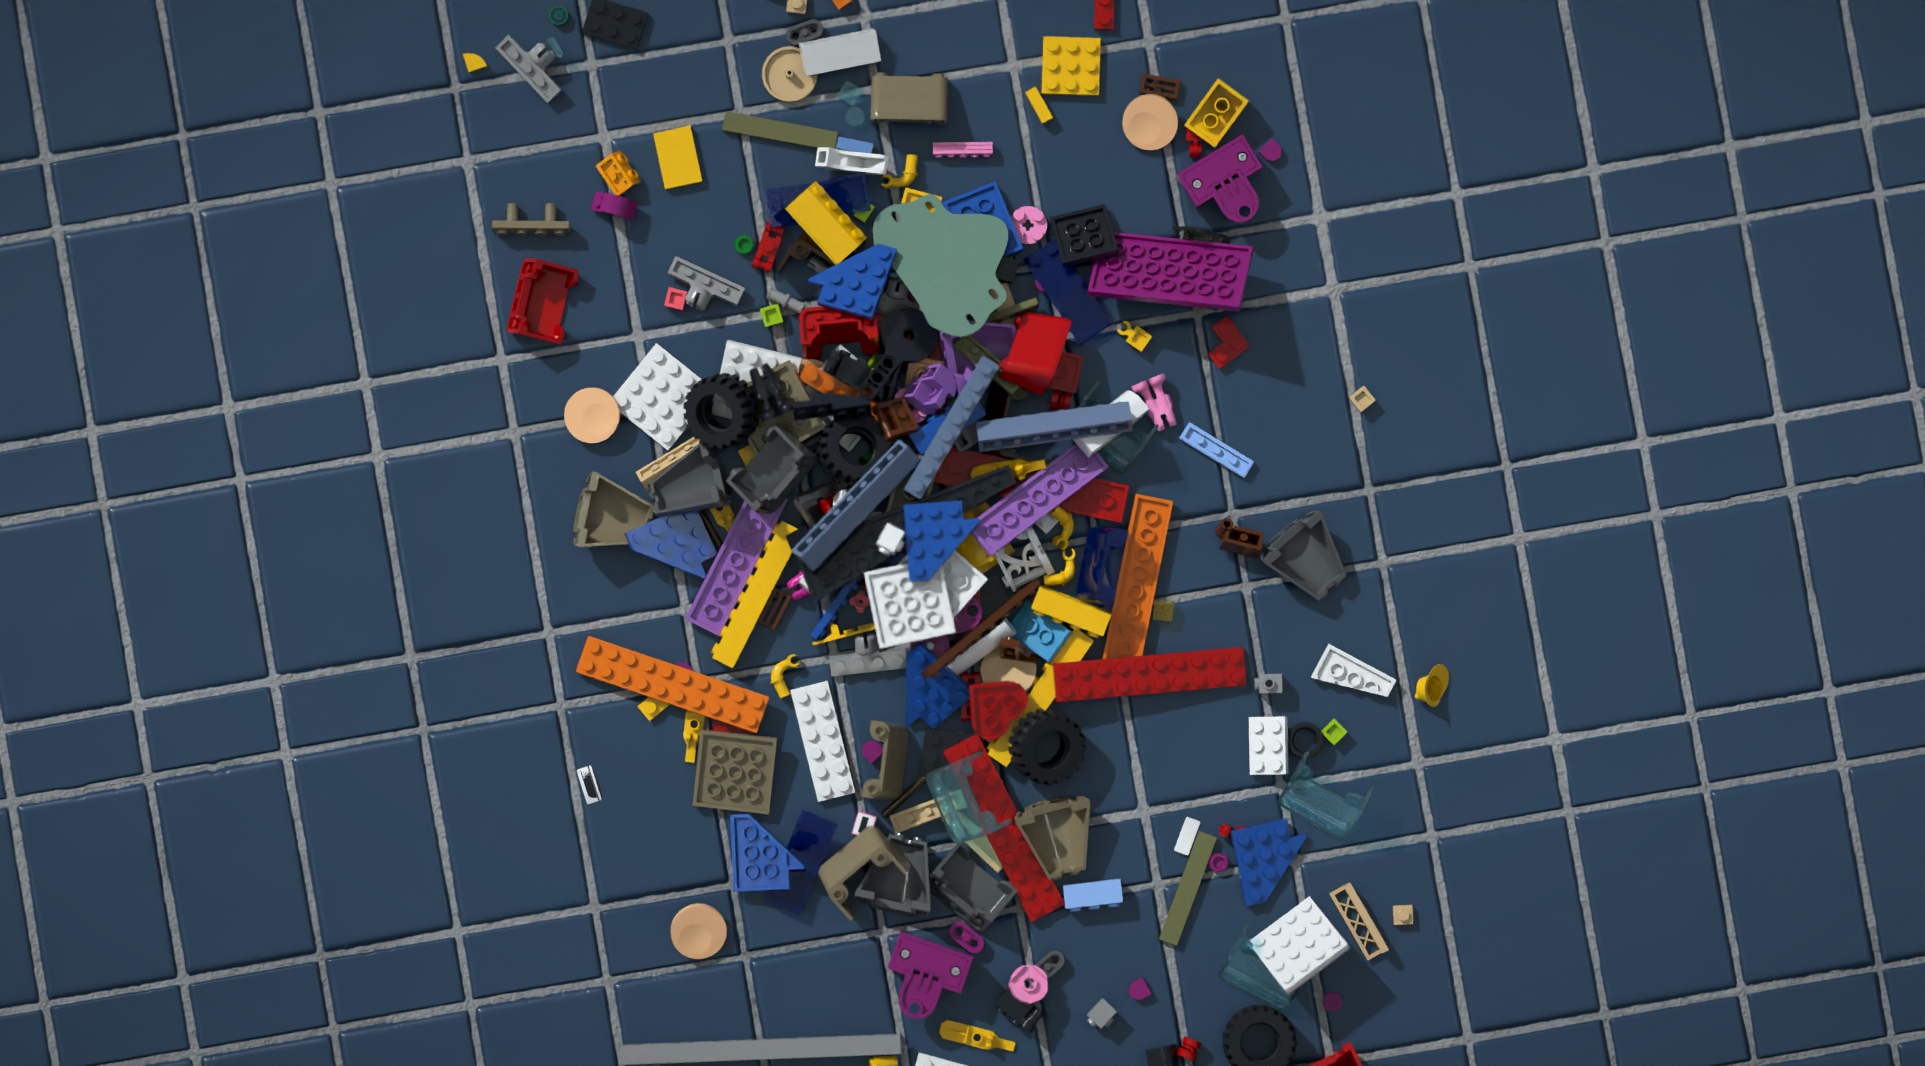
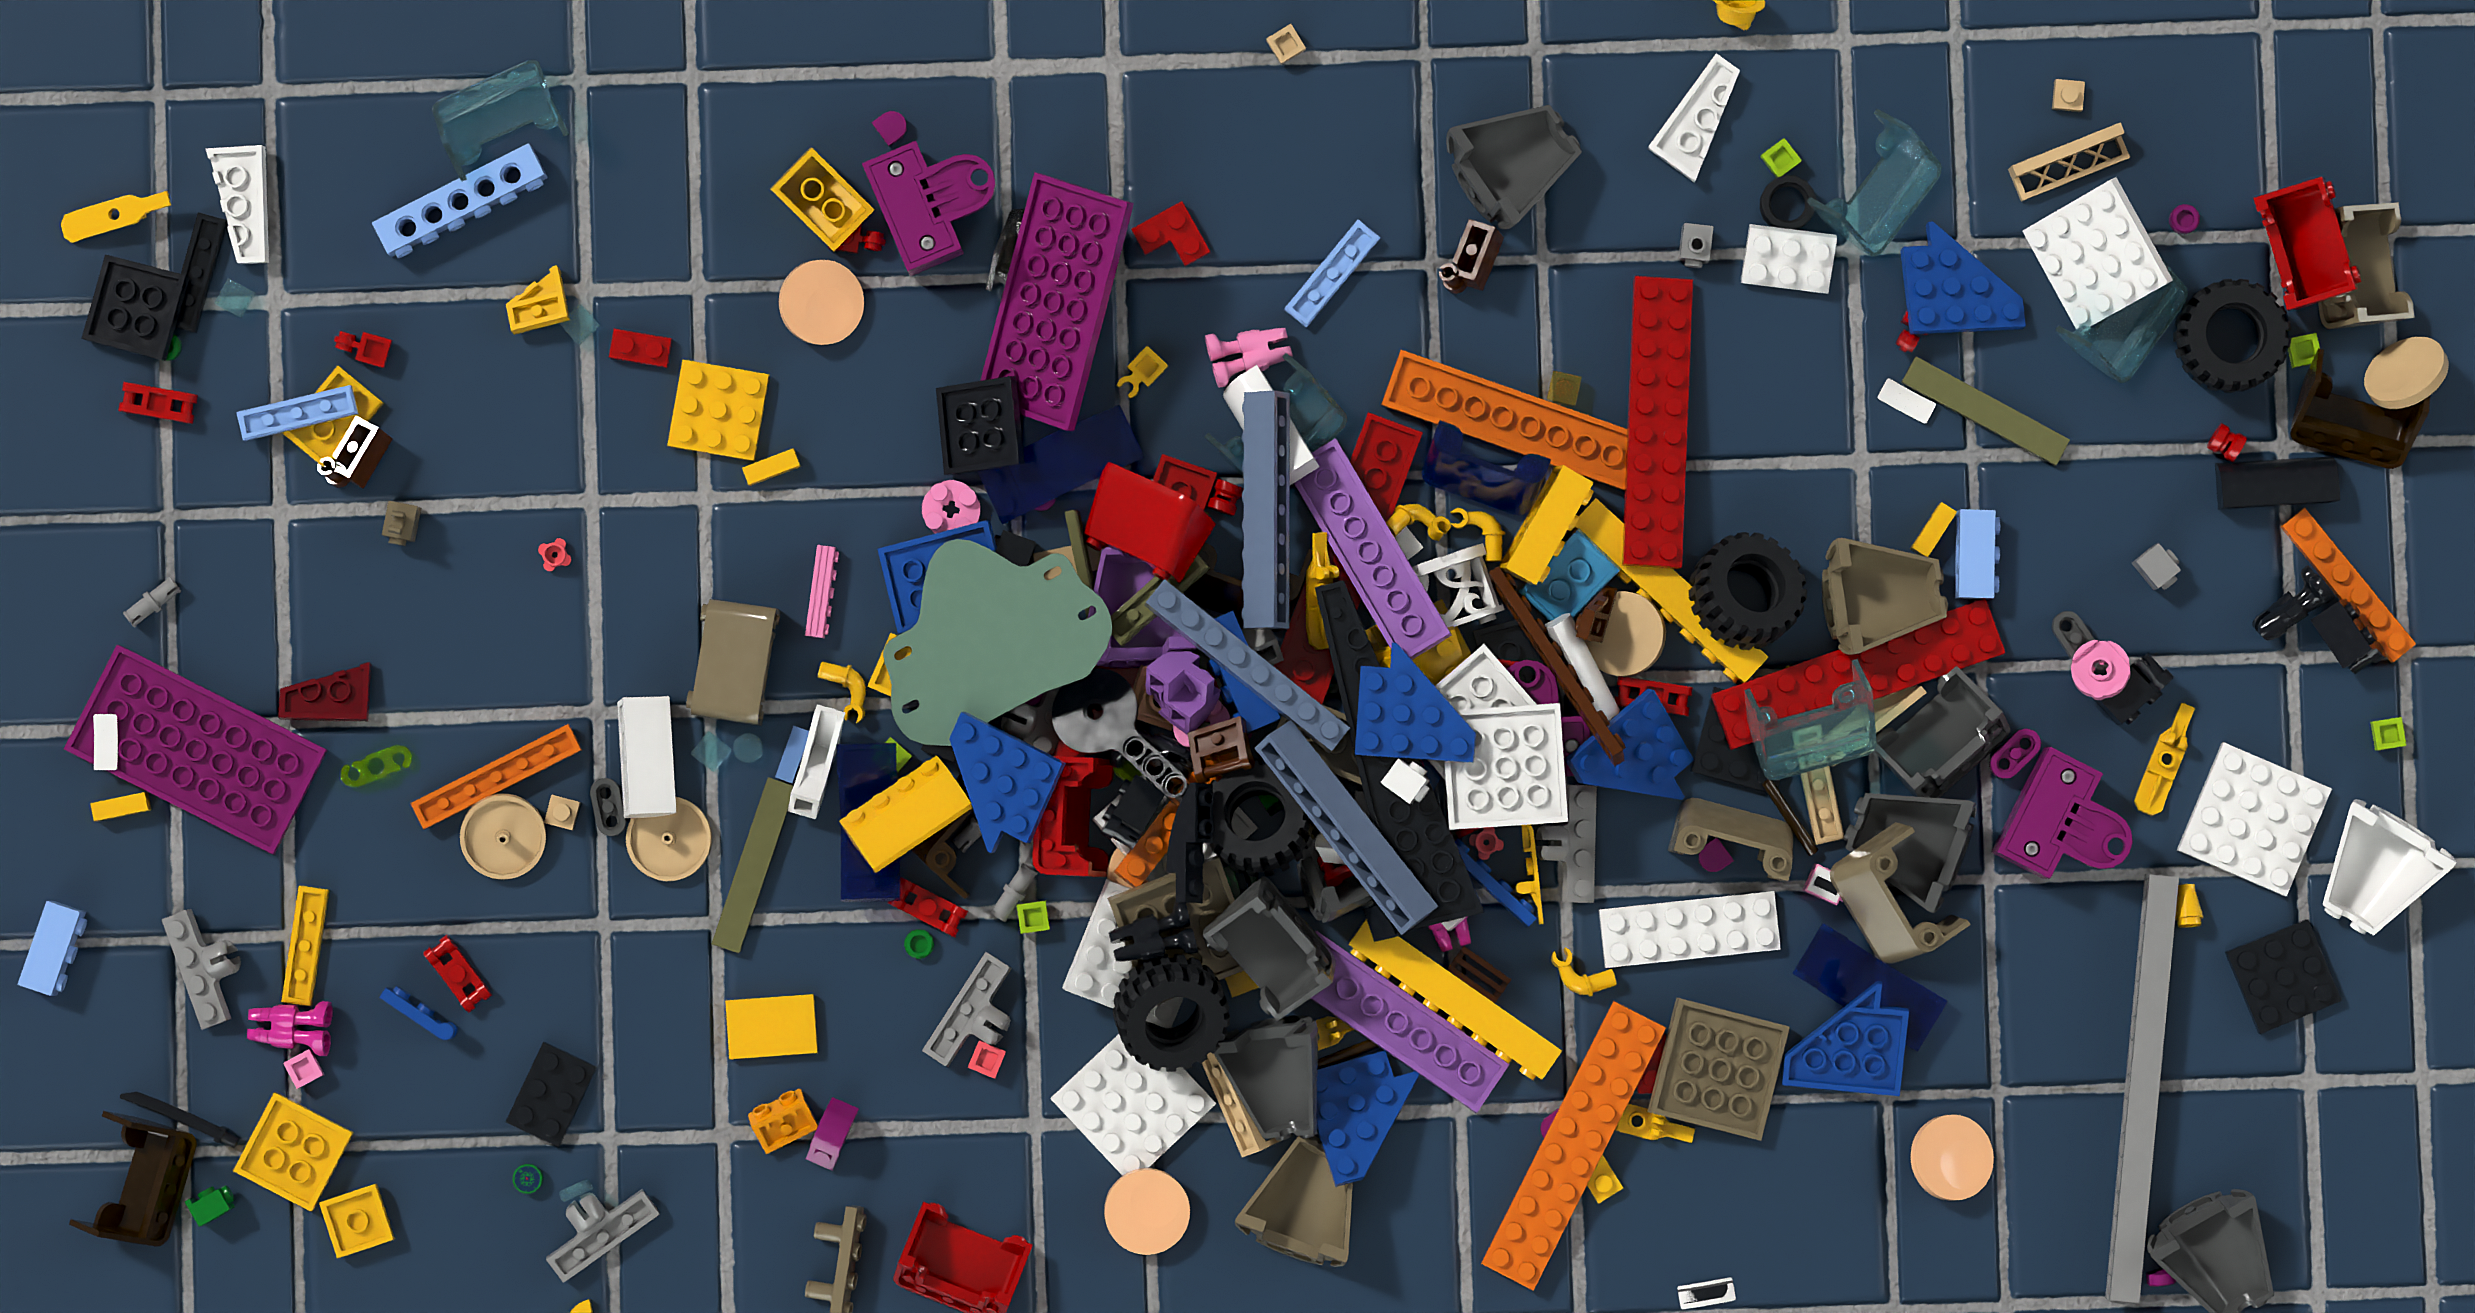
camera: 85 degrees left, 0 degrees up
(994, 706) = (1676, 661): red plate -> none
(1104, 864) = (1933, 530): none -> yellow piece
(1139, 989) = (2127, 505): magenta tile -> none
(1162, 79) = (761, 267): reddish brown tile -> none
(1218, 862) = (1953, 359): magenta tile -> none

